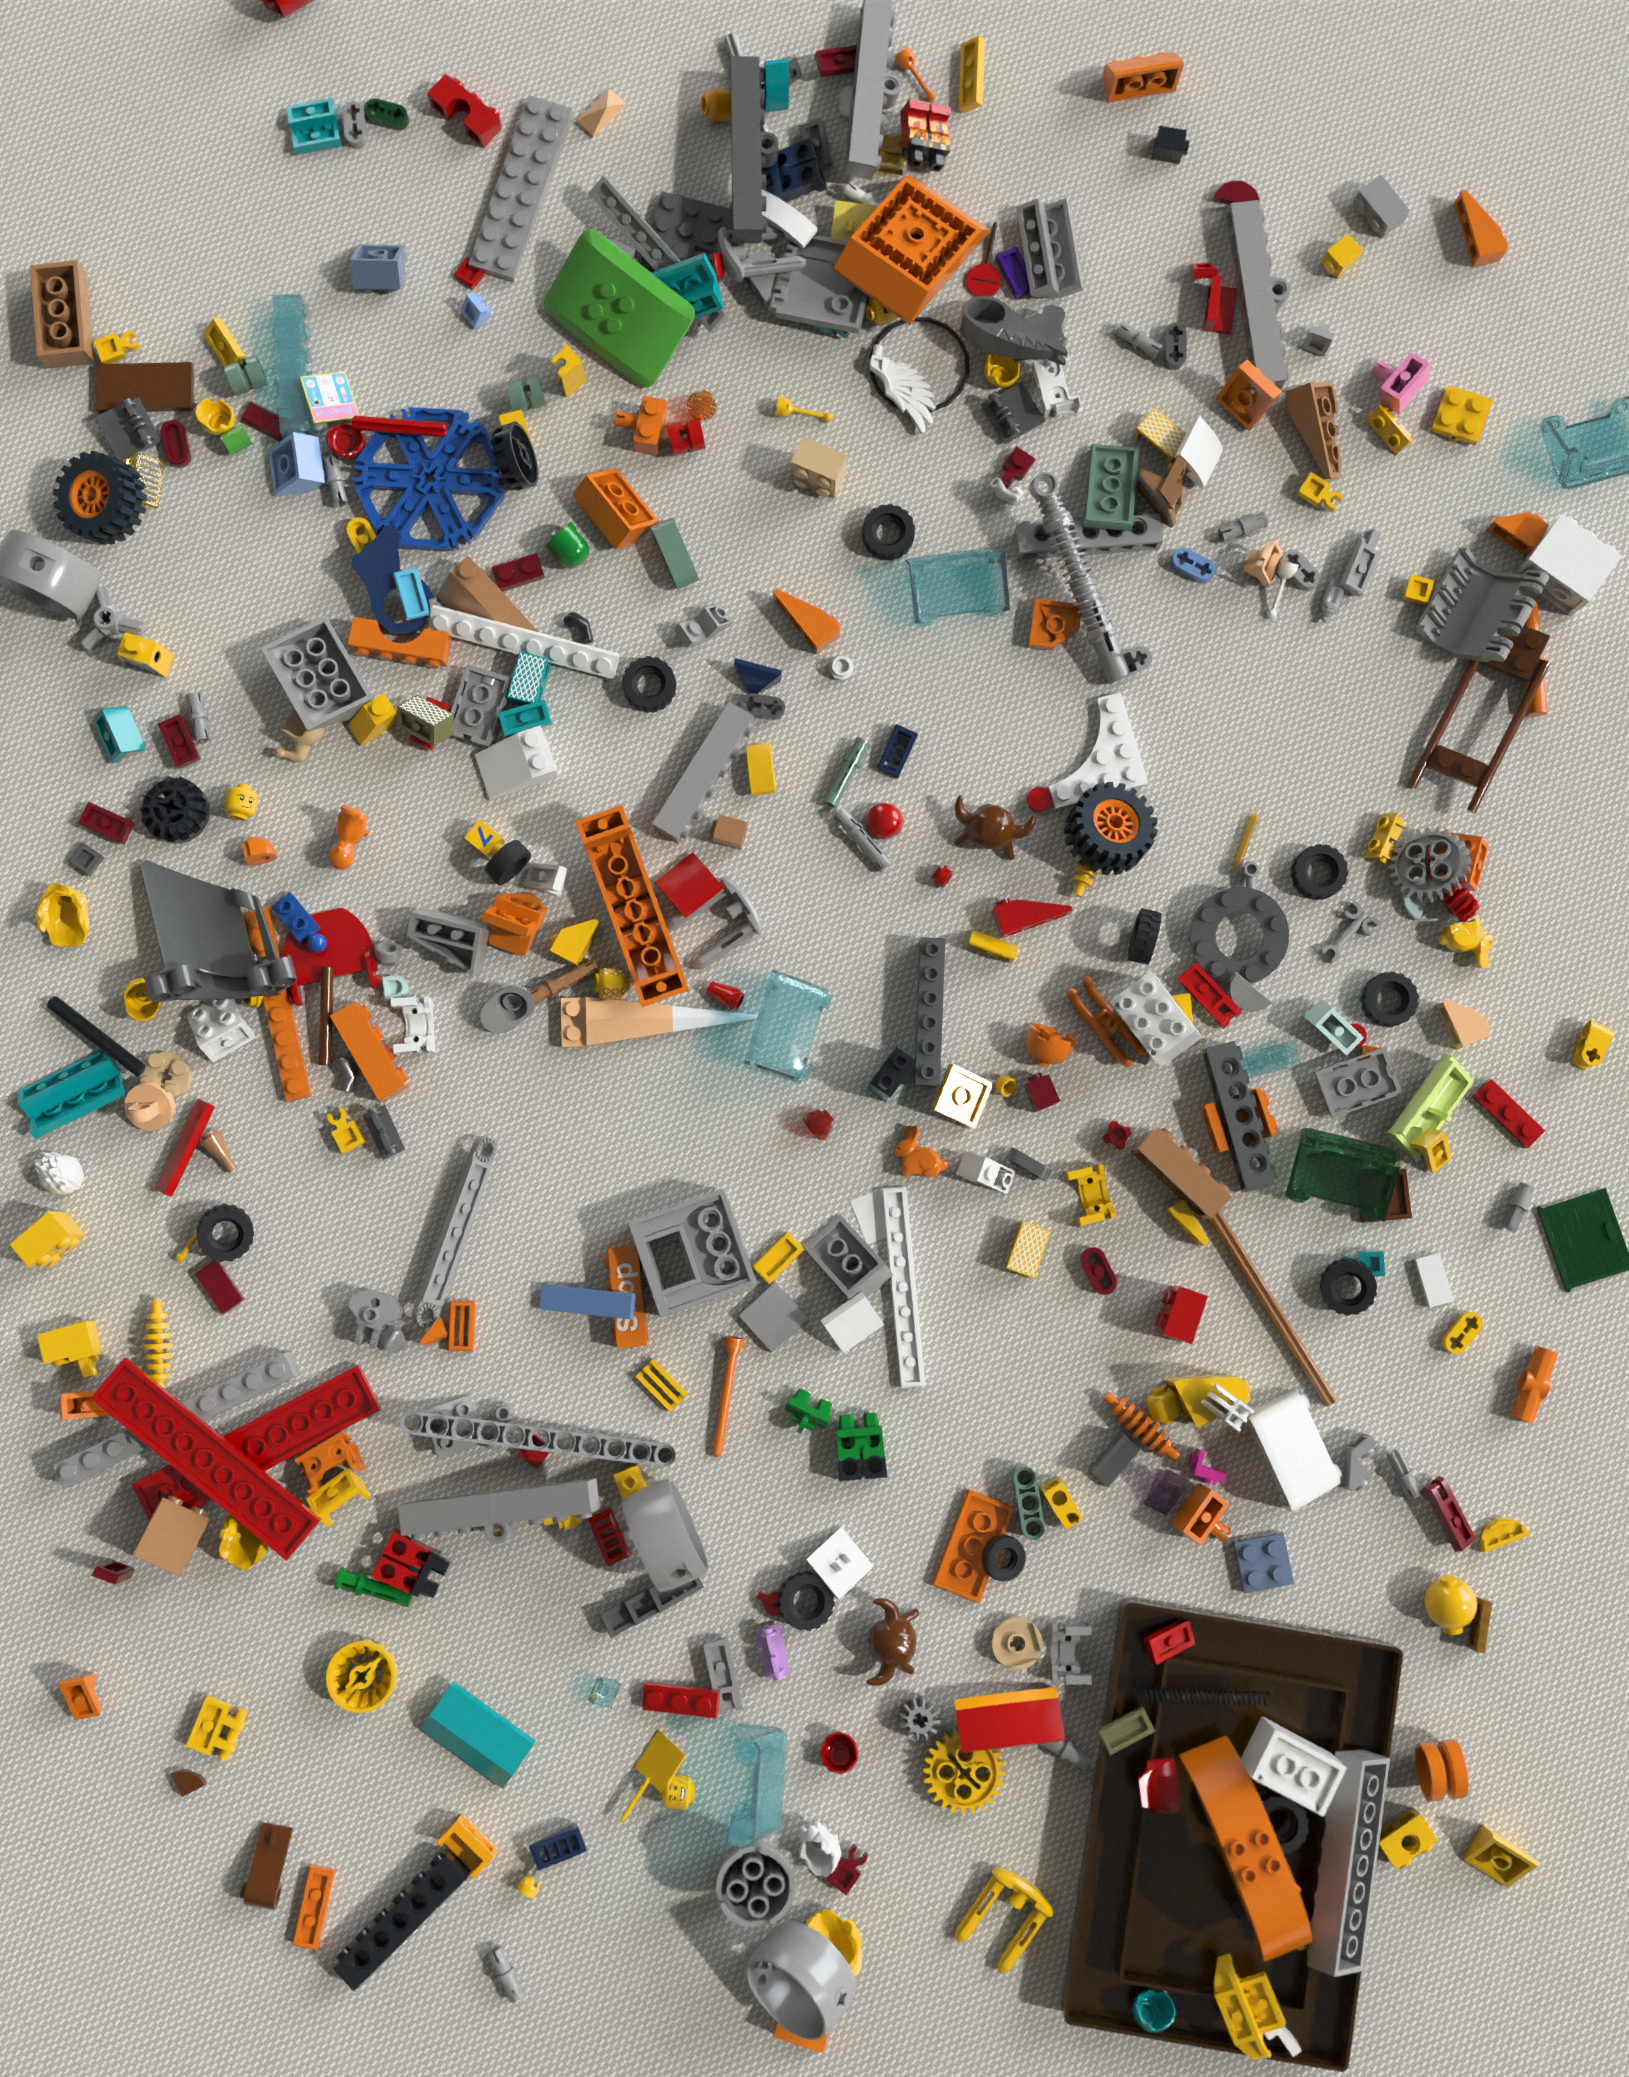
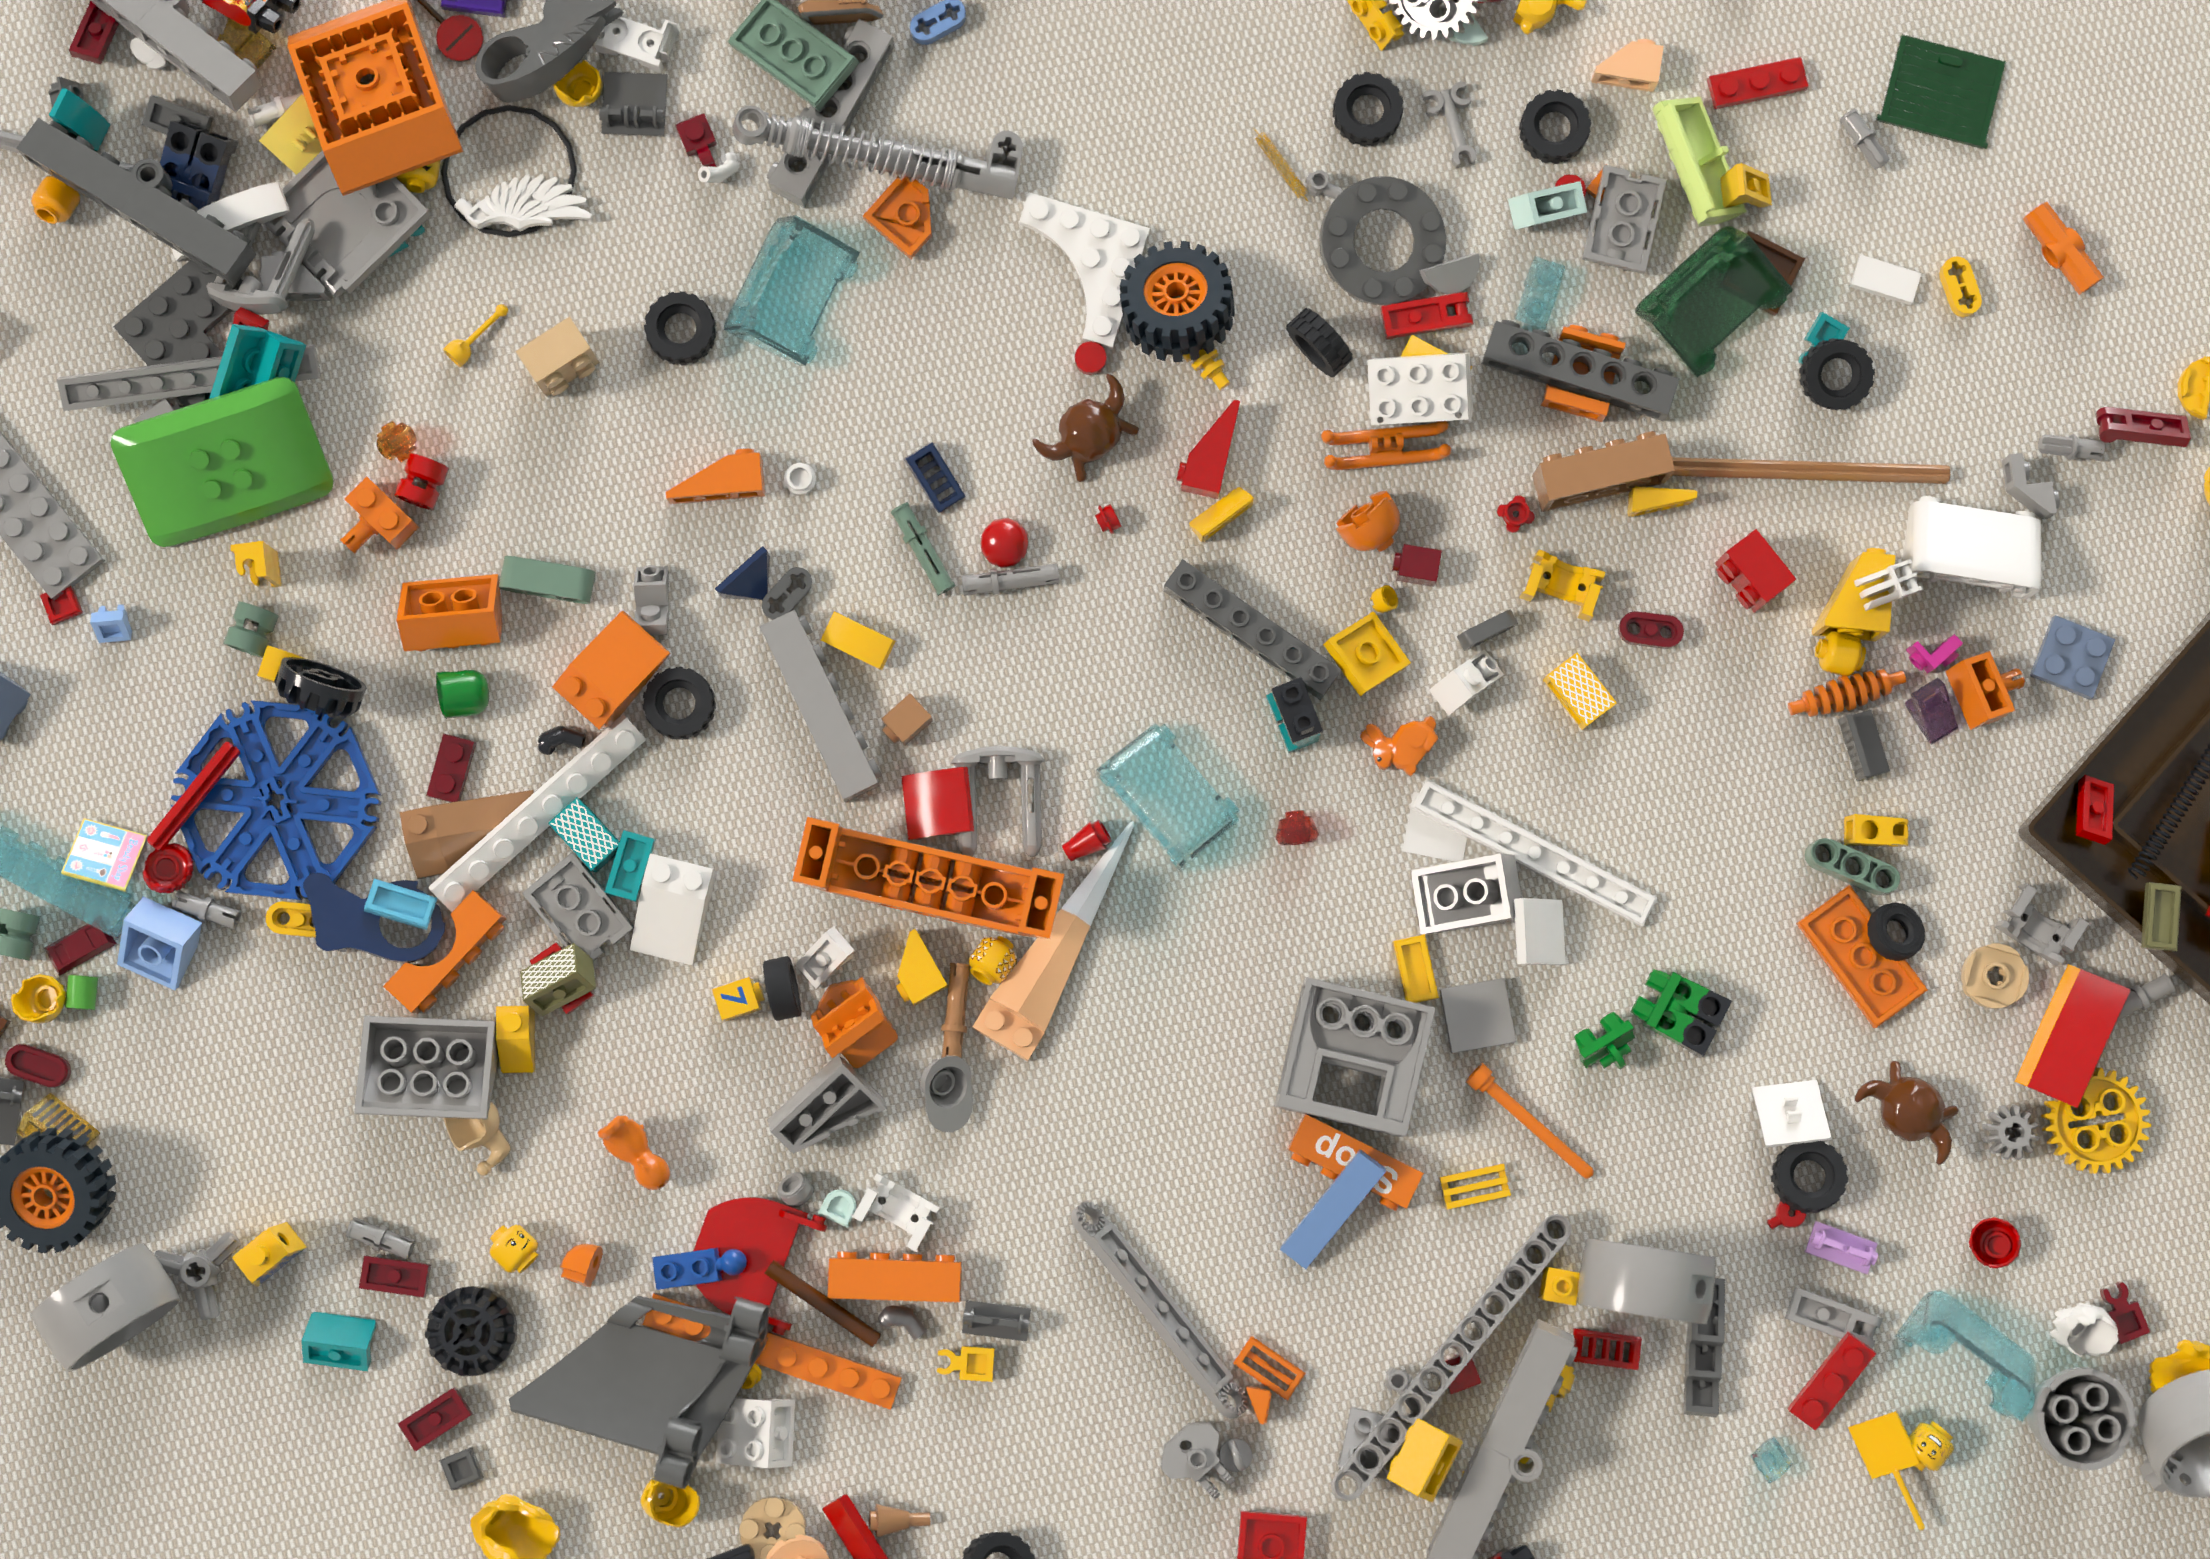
camera: 55 degrees left, 0 degrees up
(458, 1463) = (1424, 1459): none -> yellow slope
(640, 628) = (611, 671): none -> orange slope

